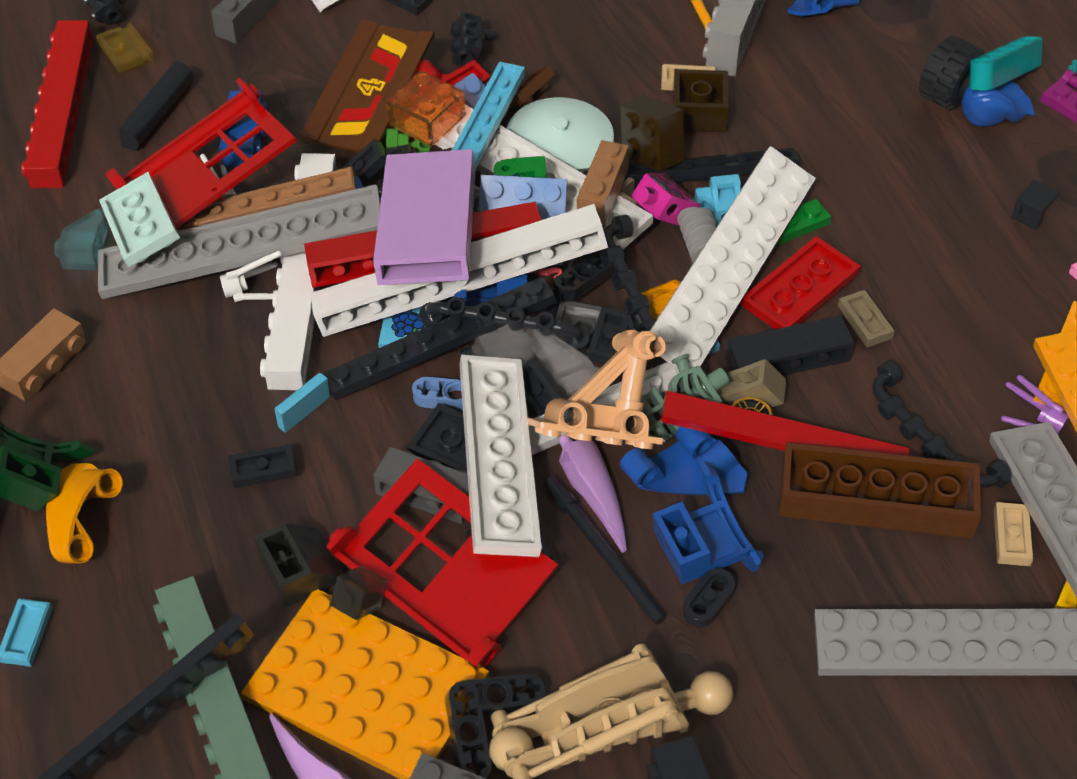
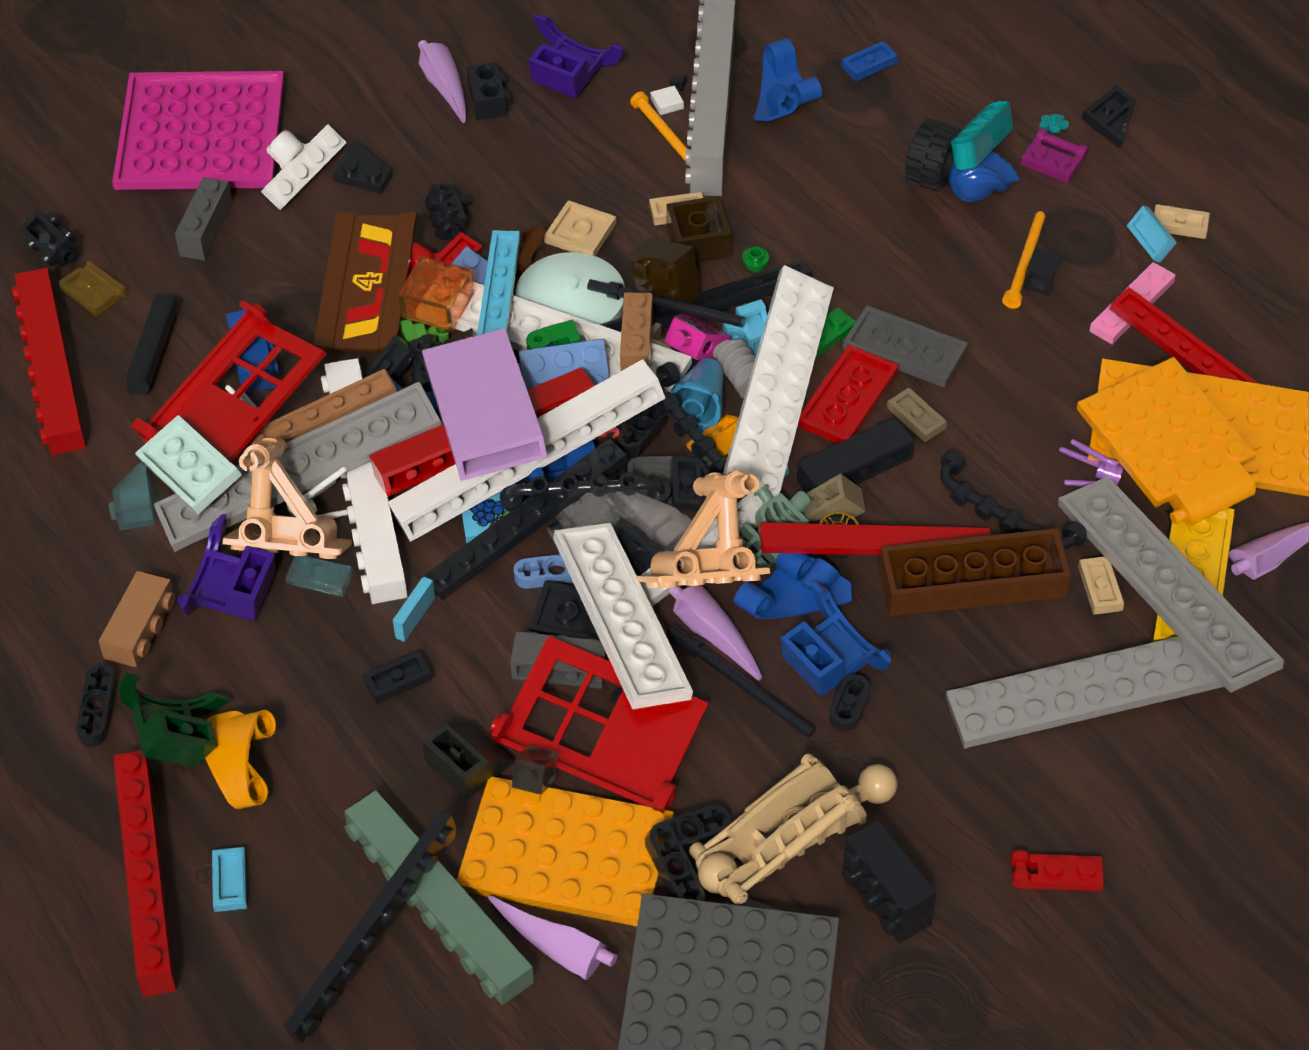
camera: 15 degrees left, 0 degrees up
(138, 338) = (227, 581): none -> dark purple piece
(188, 292) = (279, 531): none -> light nougat plate
(227, 350) = (319, 575): none -> clear light blue plate
(588, 79) = (580, 229): none -> tan plate
(596, 136) = (616, 291): none -> black bar
(652, 253) = (702, 392): none -> dark azure cone
(749, 138) = (755, 258): none -> green plate
(877, 249) = (910, 345): none -> dark grey plate
(997, 224) = (1013, 298): none -> light orange bar

